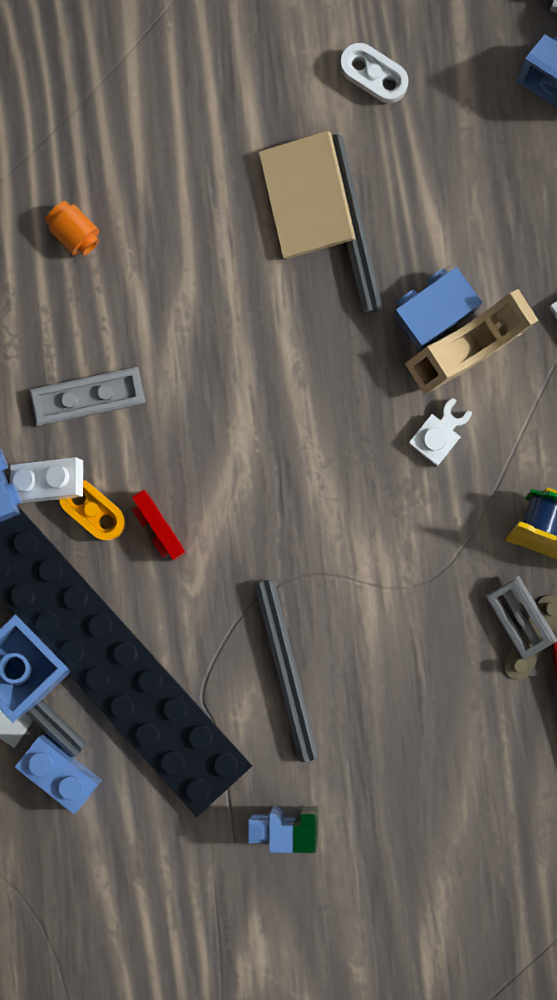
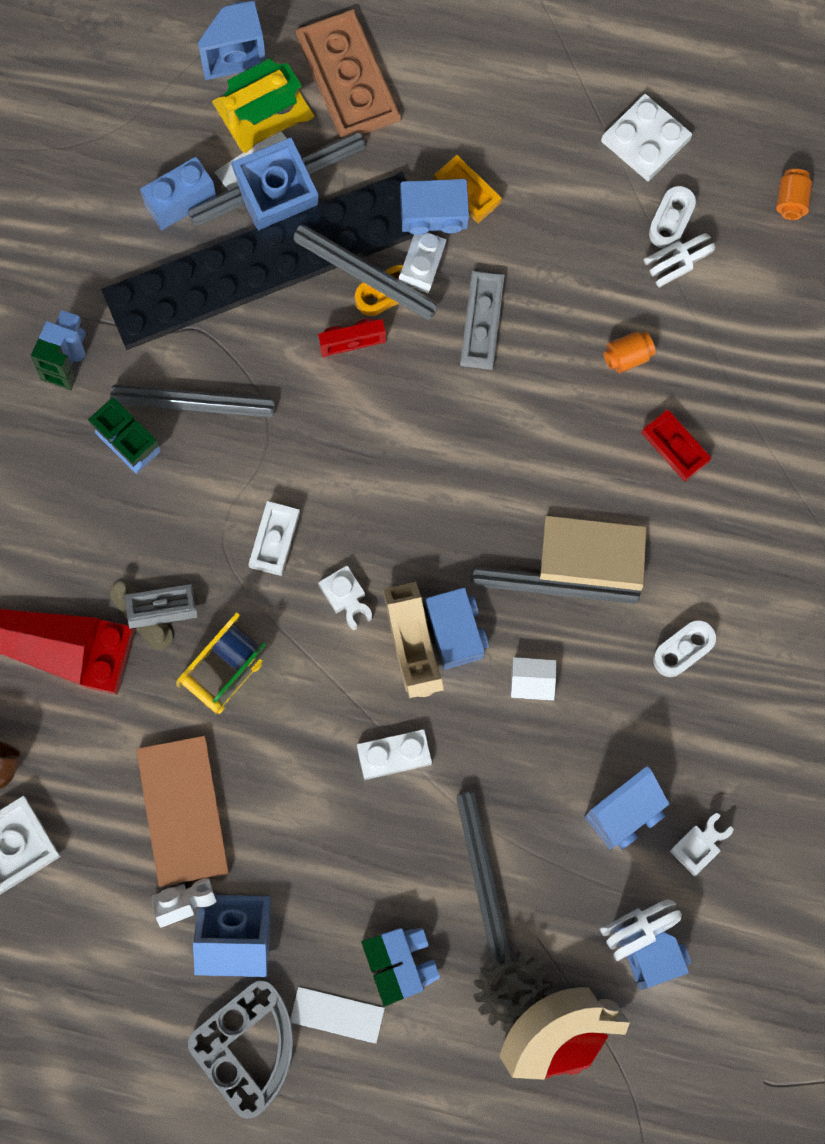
camera: 100 degrees right, 10 degrees down
(83, 535) = (365, 272): none -> dark grey axle
(160, 148) = (676, 445): none -> red plate
(359, 722) = (124, 435): none -> dark green hips
(407, 527) = (274, 538): none -> white plate
(462, 212) = (533, 678): none -> white piece

